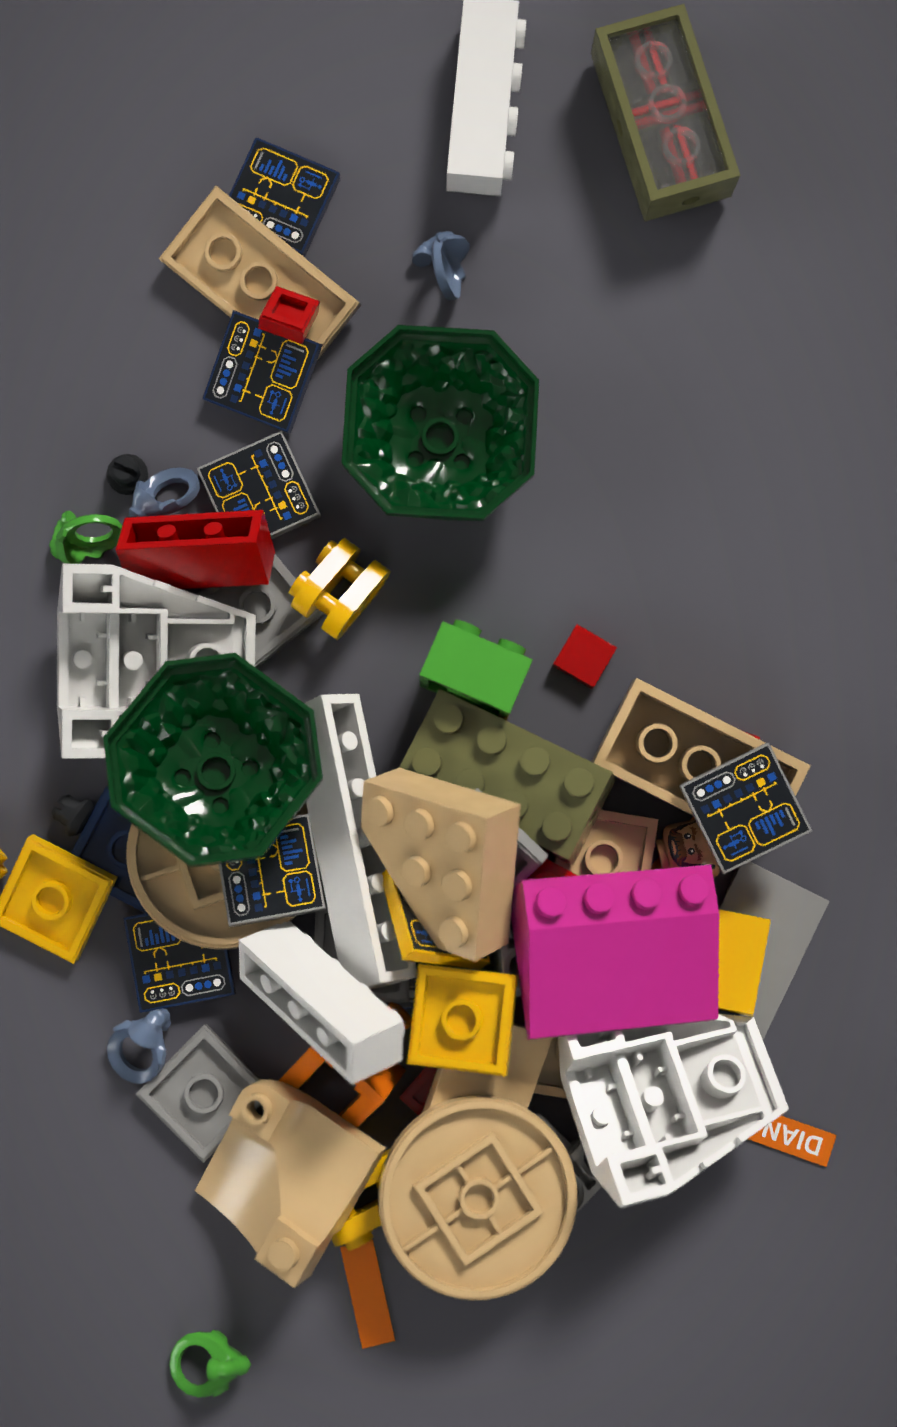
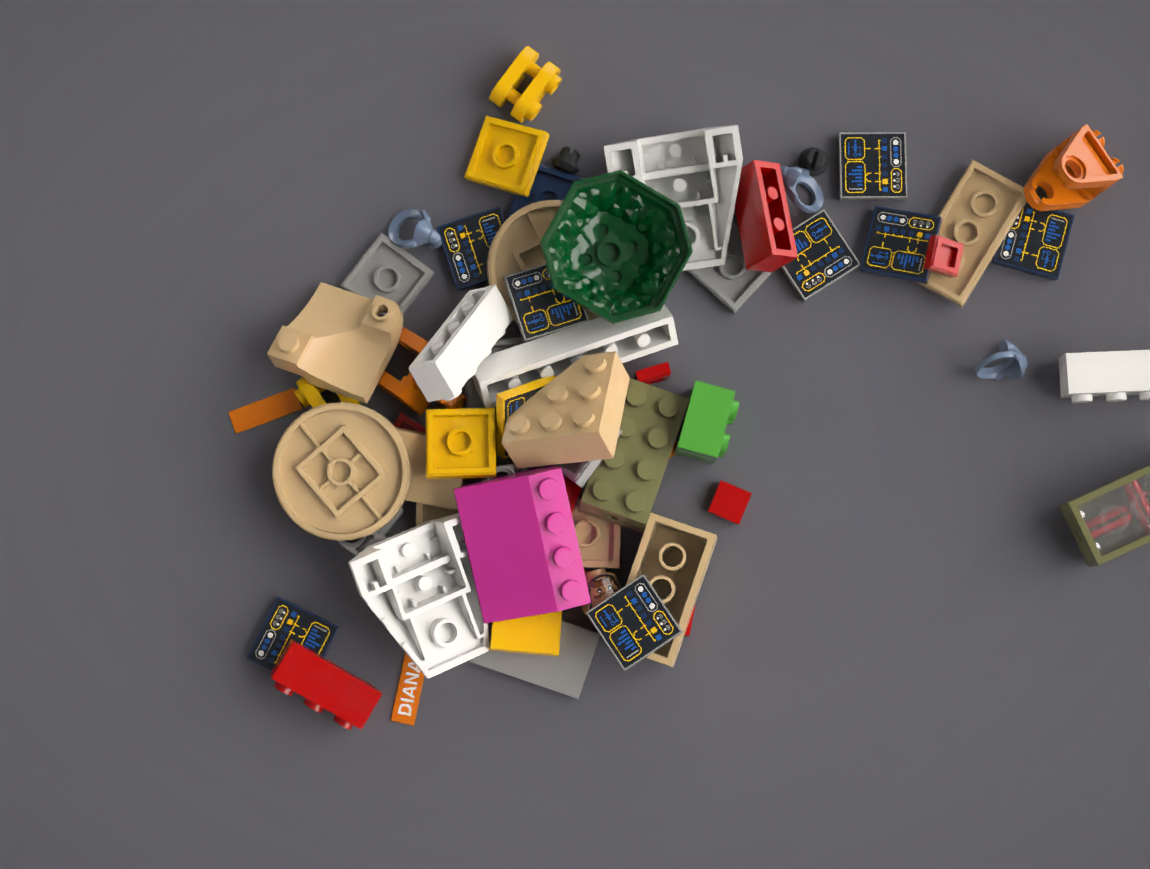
camera: 90 degrees right, 0 degrees up
(72, 547) = (754, 132): bright green piece -> none
(146, 395) = (872, 166): none -> black tile
(198, 126) = (1073, 173): none -> orange piece
(221, 1369) = (205, 316): bright green piece -> none
(314, 589) = (769, 315): yellow brick -> none
(395, 735) = (653, 374): none -> red tile
(440, 423) = (879, 372): dark green rock -> none
(703, 1293) = (290, 622): none -> black tile
(773, 1257) = (325, 685): none -> red brick

